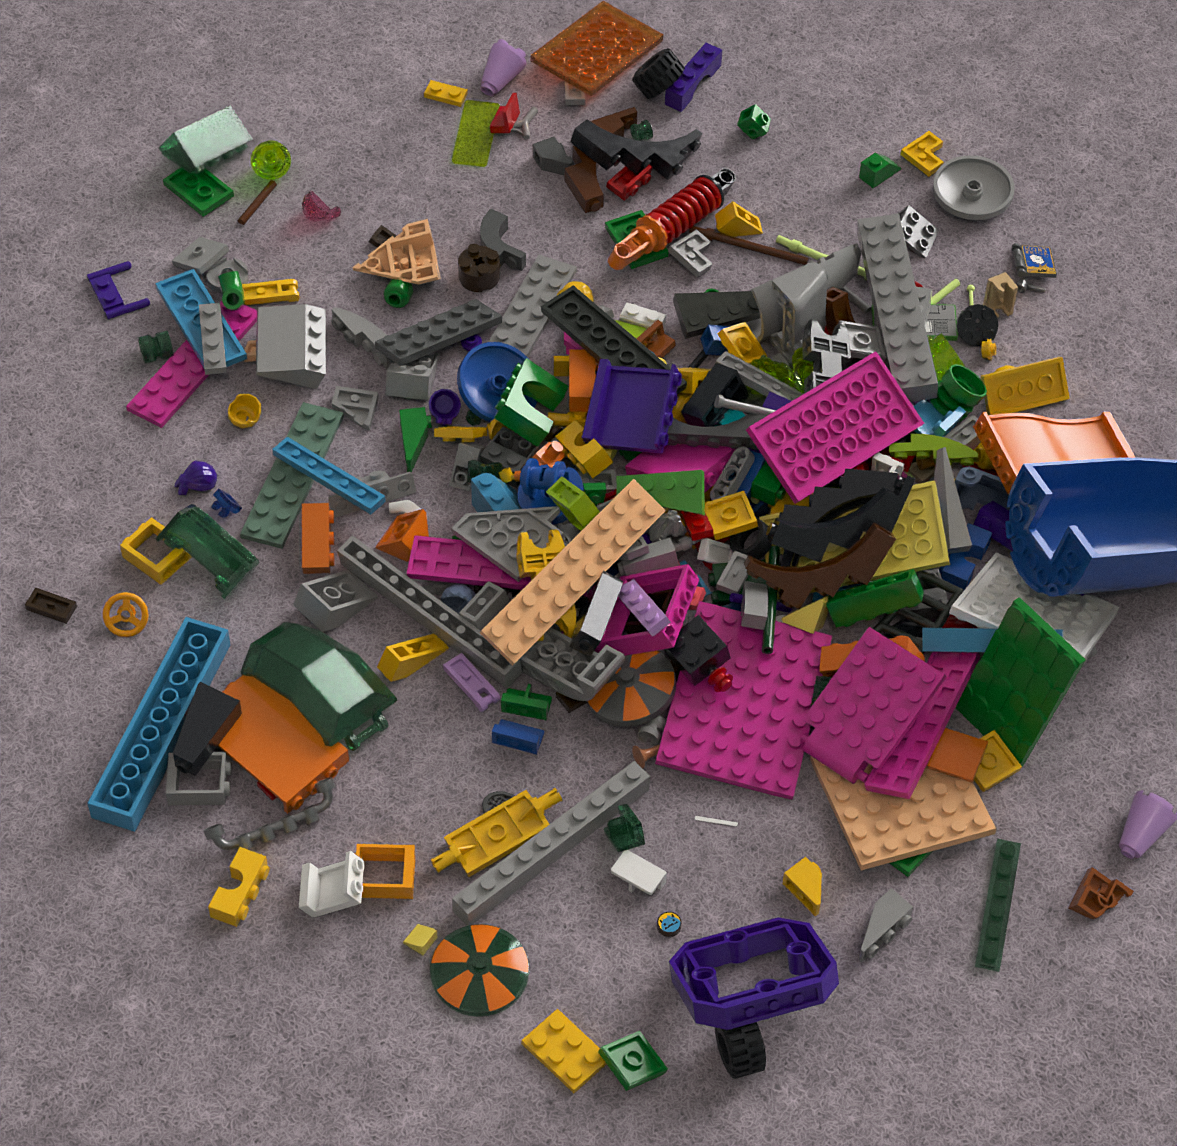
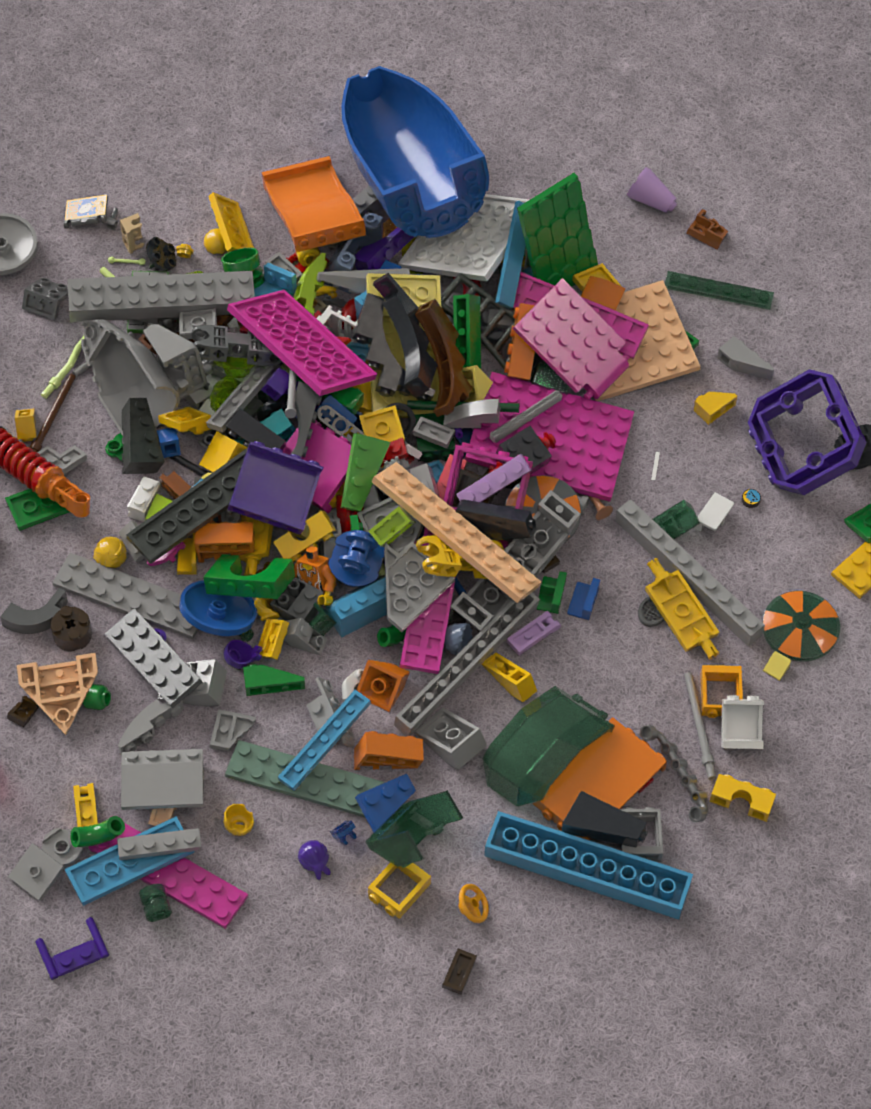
camera: 90 degrees left, 5 degrees up
(258, 536) = (384, 800): none -> blue wing
(295, 855) = (707, 758): none -> light grey bar
(761, 663) = (525, 416): none -> light grey axle

